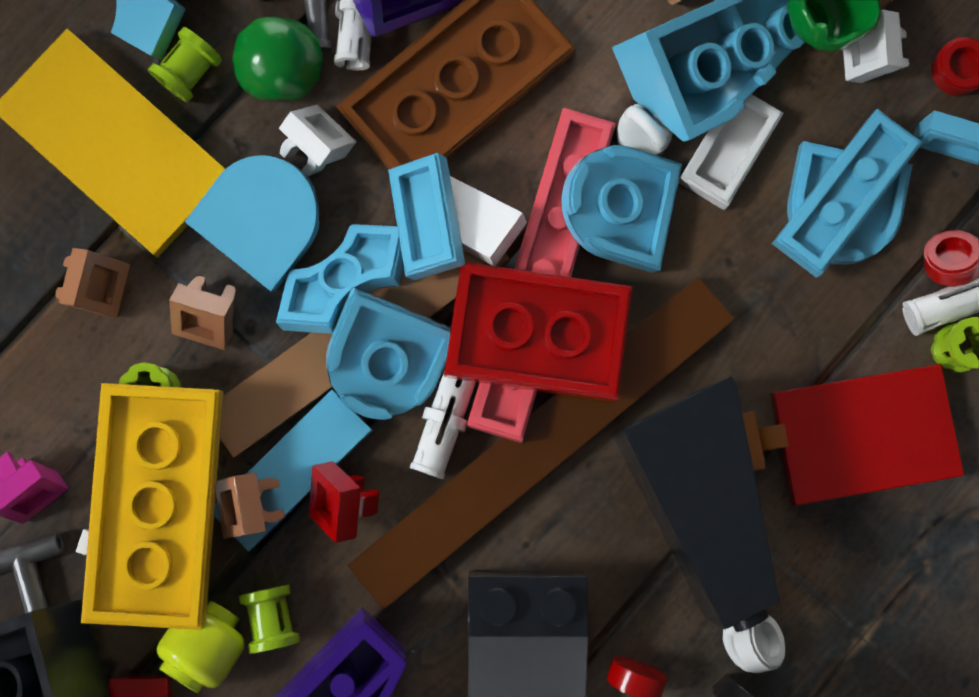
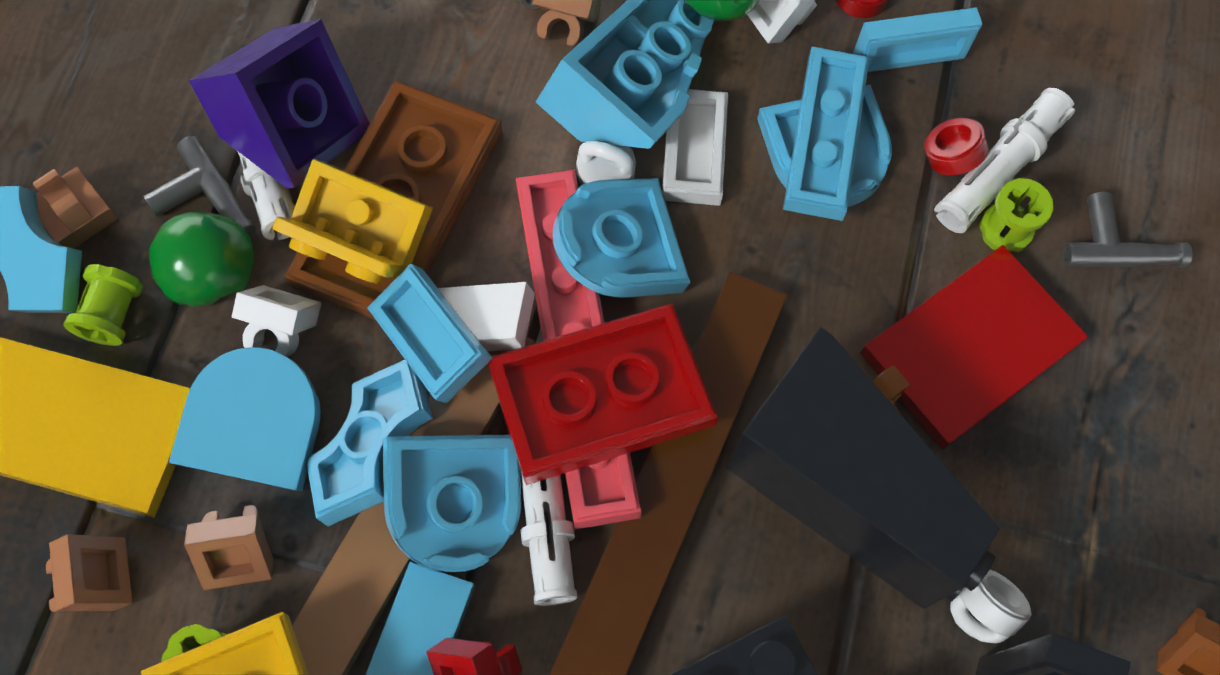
camera: 30 degrees left, 15 degrees down
(409, 93) = (355, 222): none -> yellow bracket

